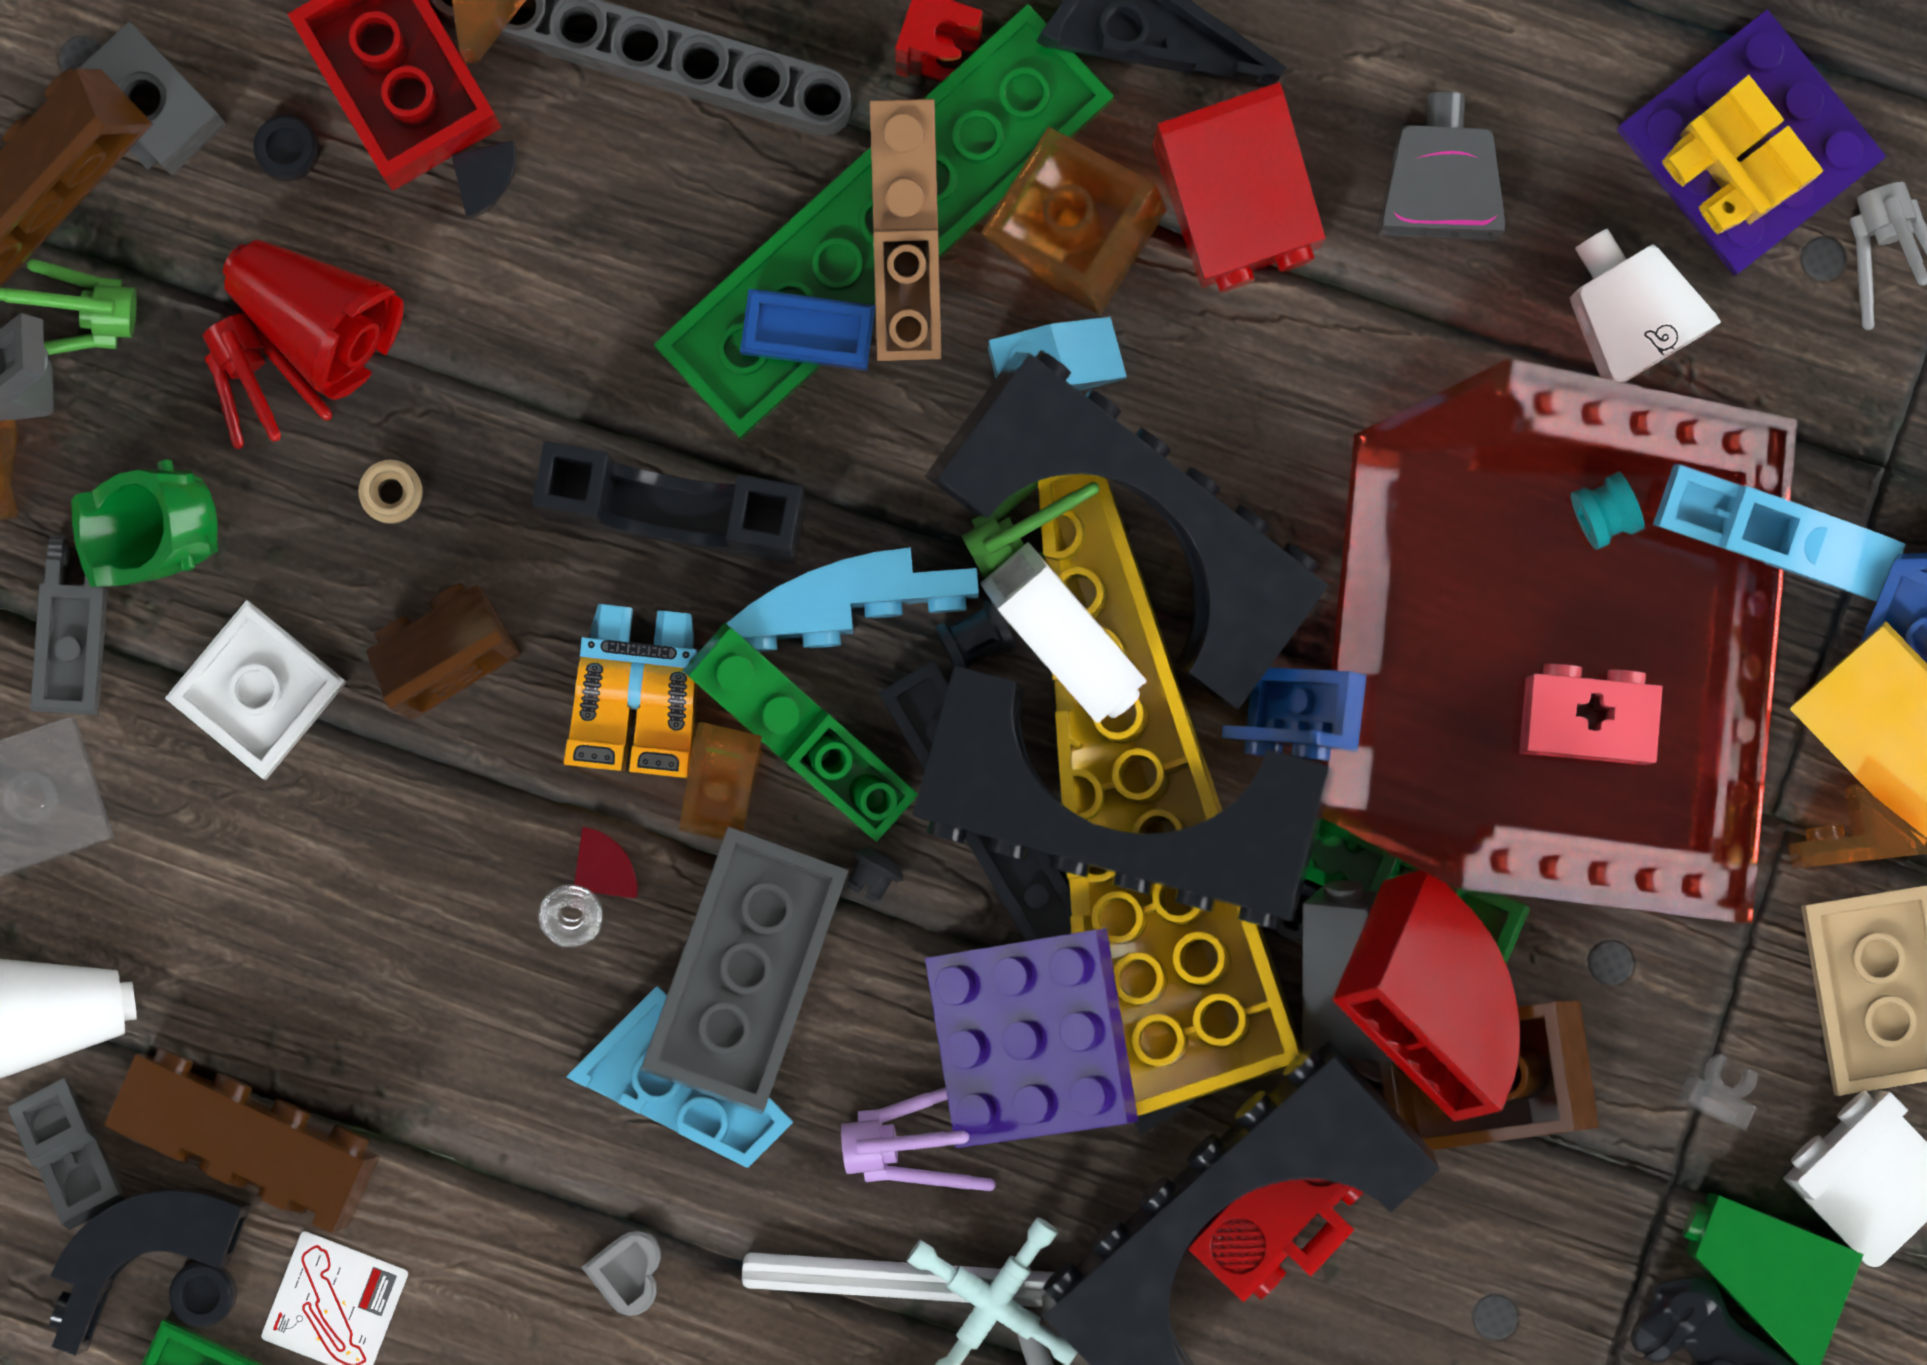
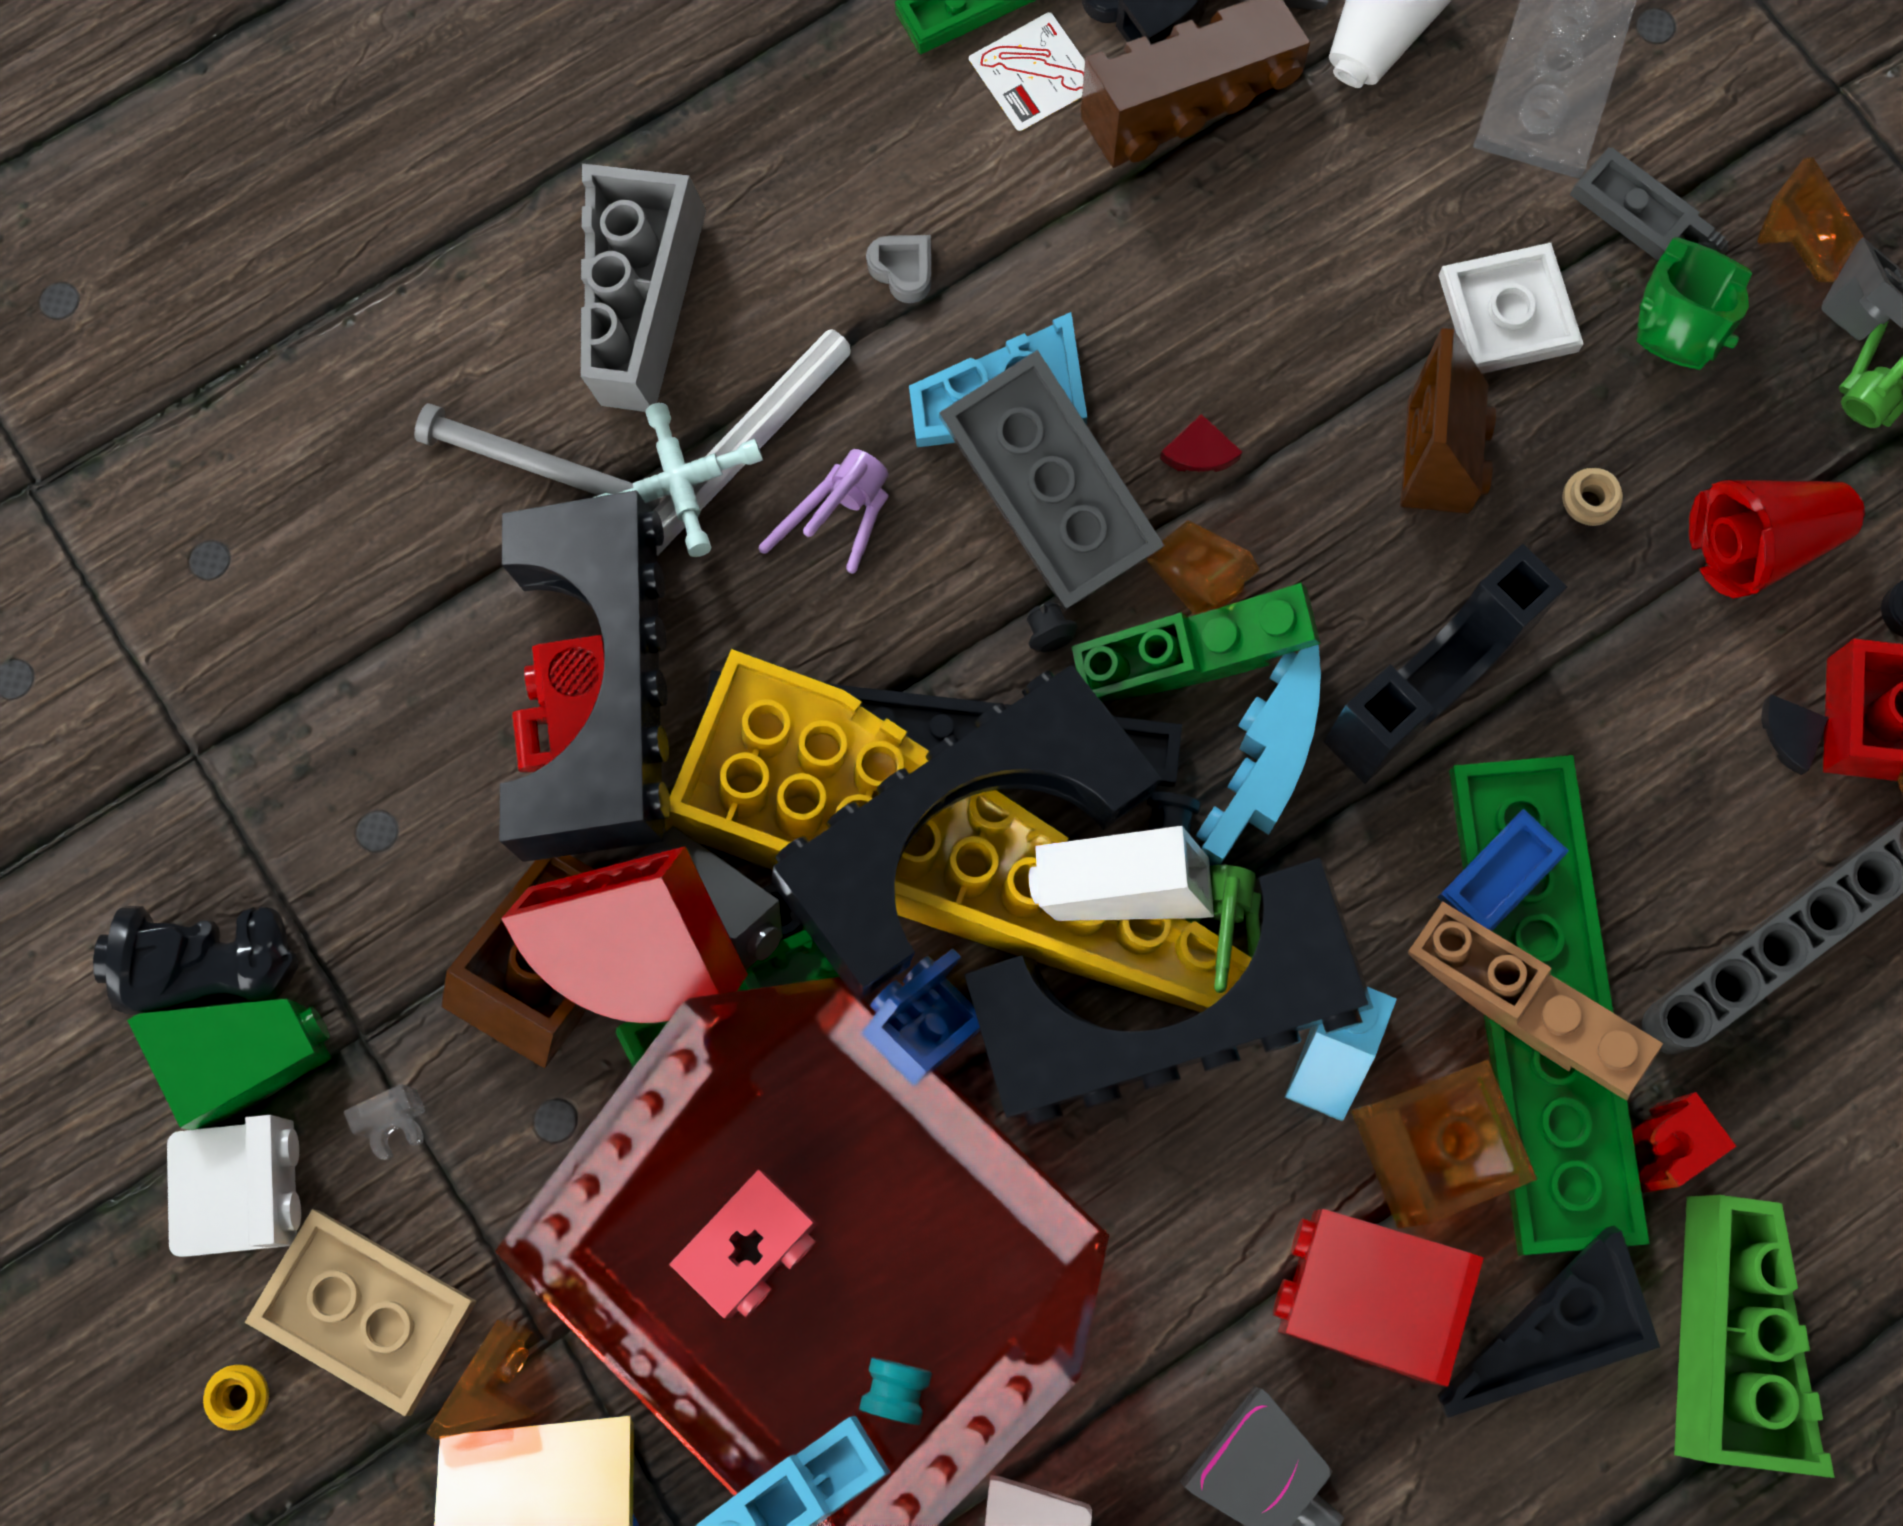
camera: 135 degrees right, 10 degrees down
(237, 349) = (1773, 460): red plant -> none
(565, 931) = (1182, 398): clear plate -> none
(639, 677) = (1317, 542): hips -> none
(1032, 1038) = (840, 641): dark purple plate -> none

